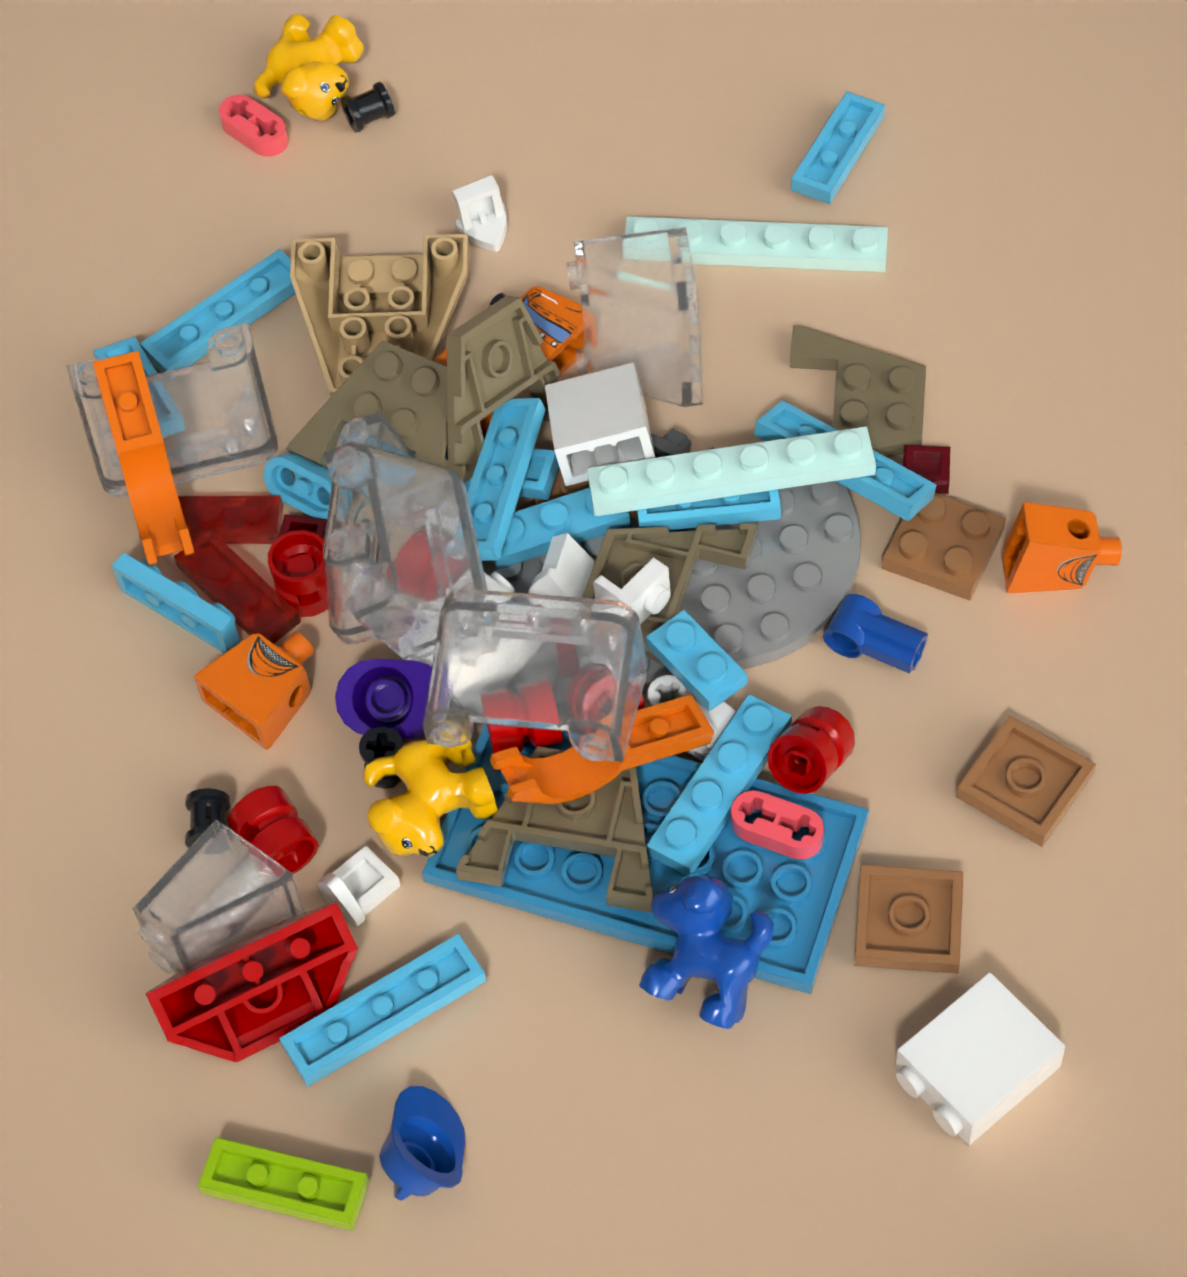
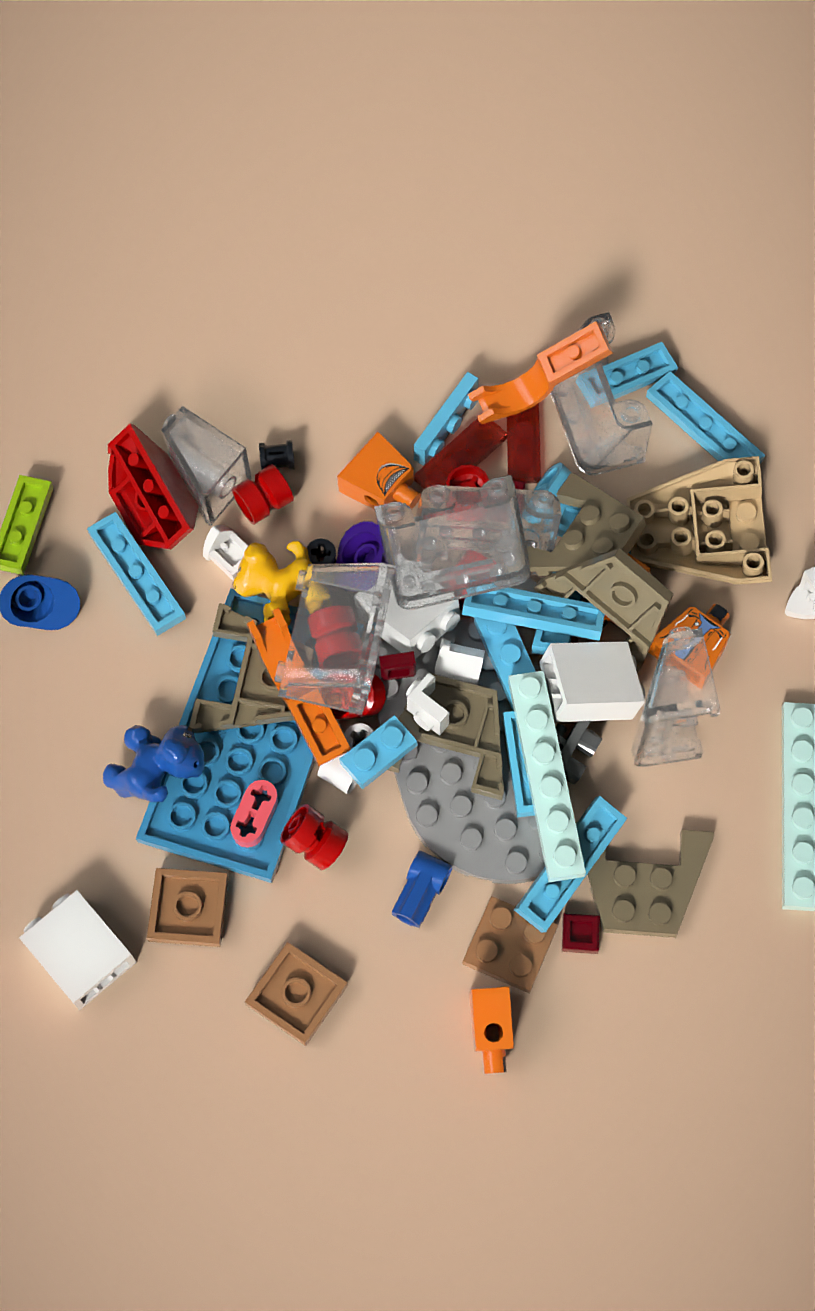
camera: 85 degrees right, 10 degrees up
(723, 775) = (289, 775): medium azure plate -> none

